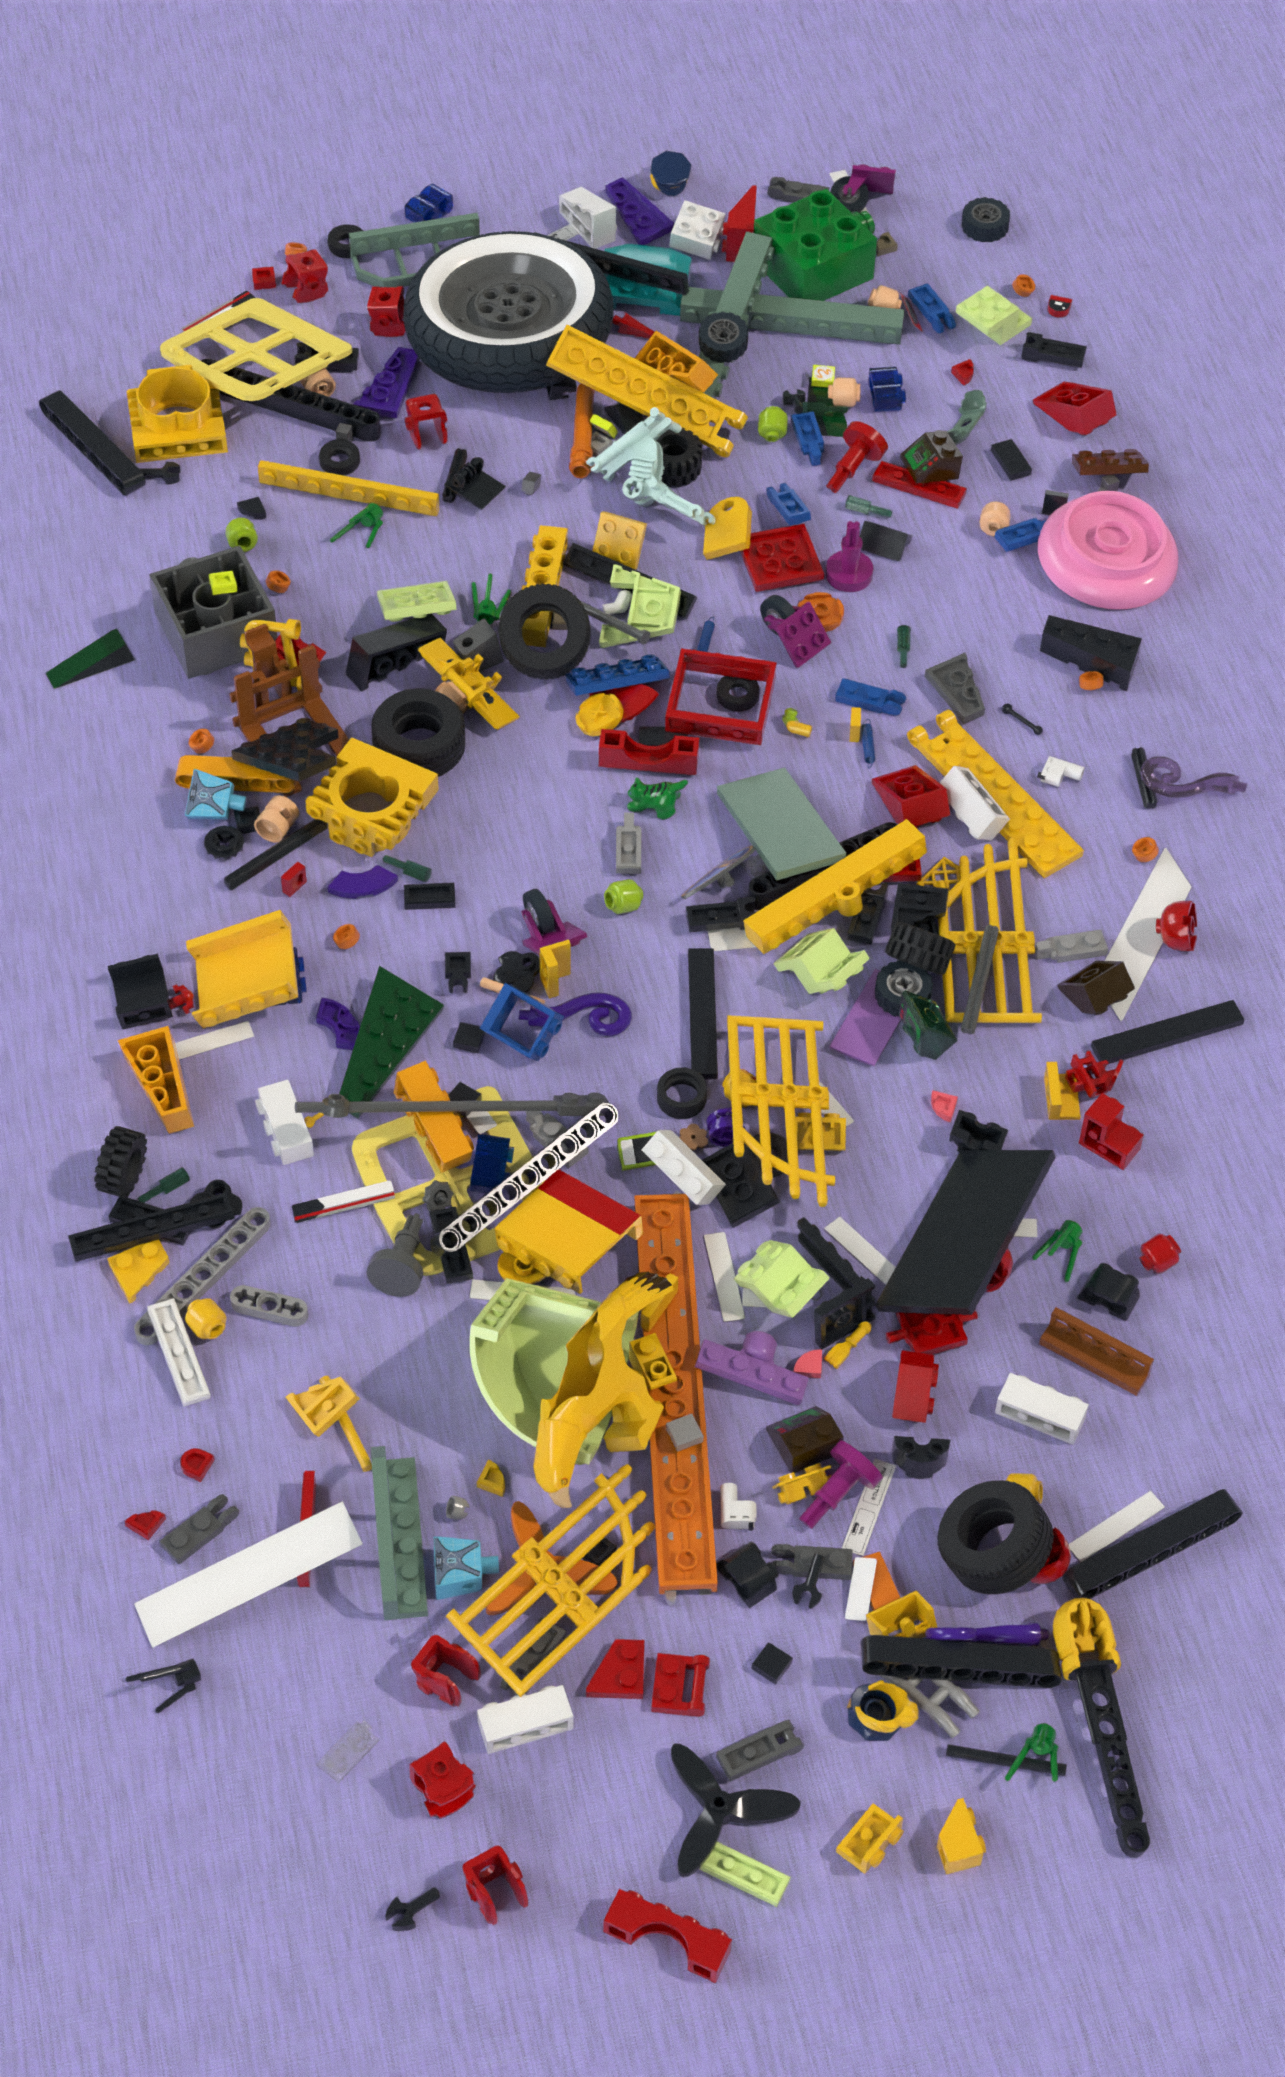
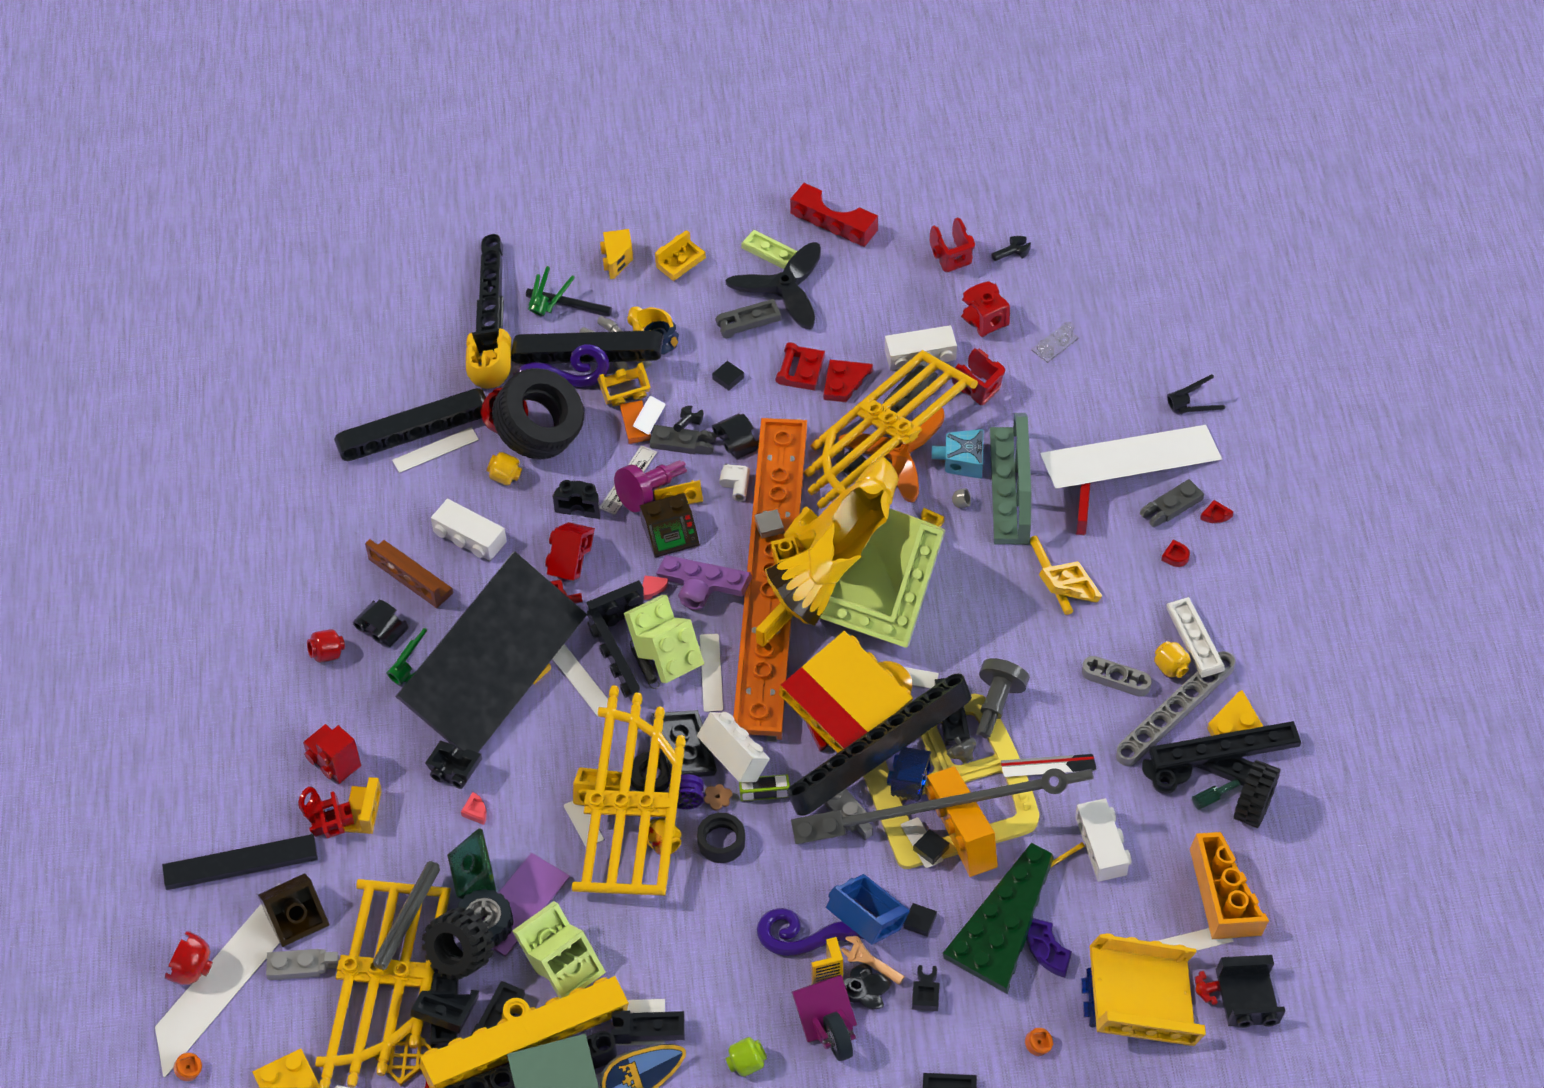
camera: 170 degrees left, 0 degrees up
(702, 1012) = (686, 926): black tile -> none

